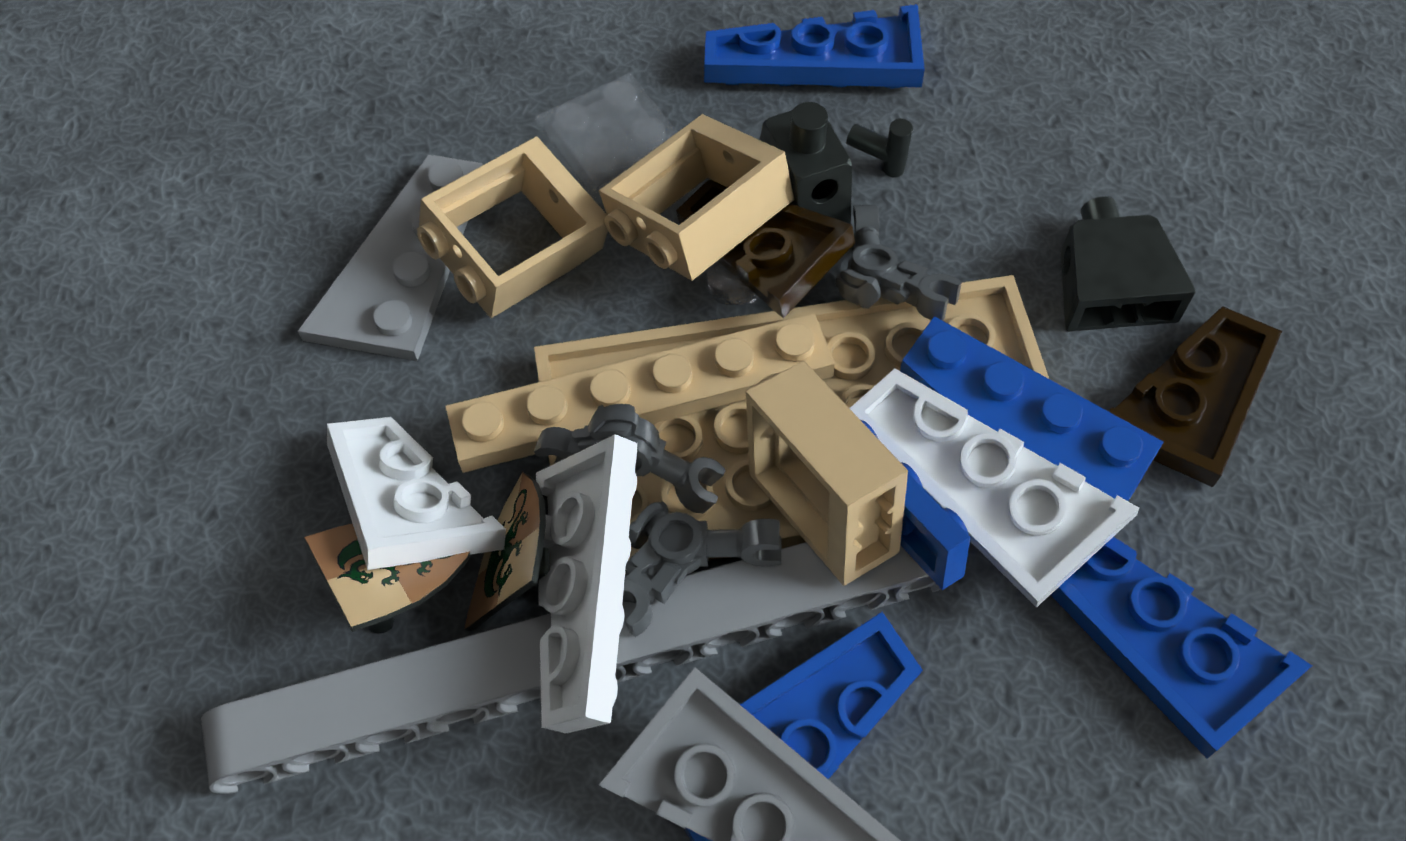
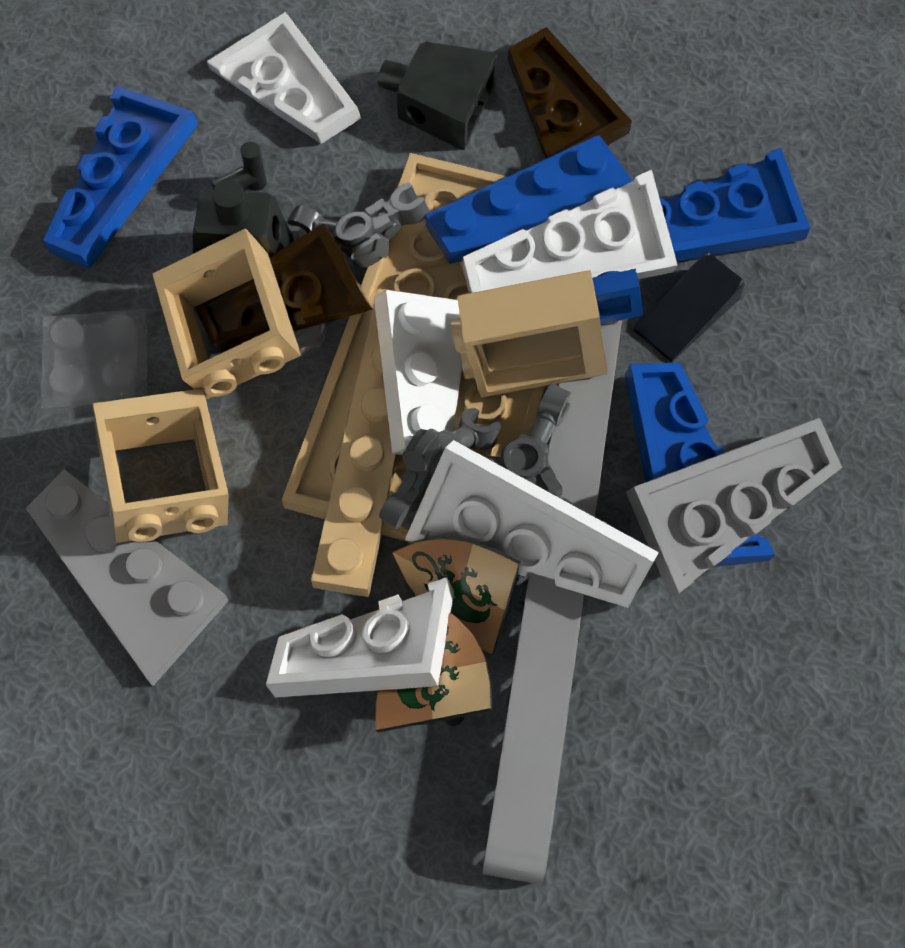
camera: 65 degrees left, 5 degrees up
(706, 401) = (417, 363): none -> white wing
(1013, 656) = (691, 306): none -> black slope
(1031, 133) = (288, 78): none -> white wing

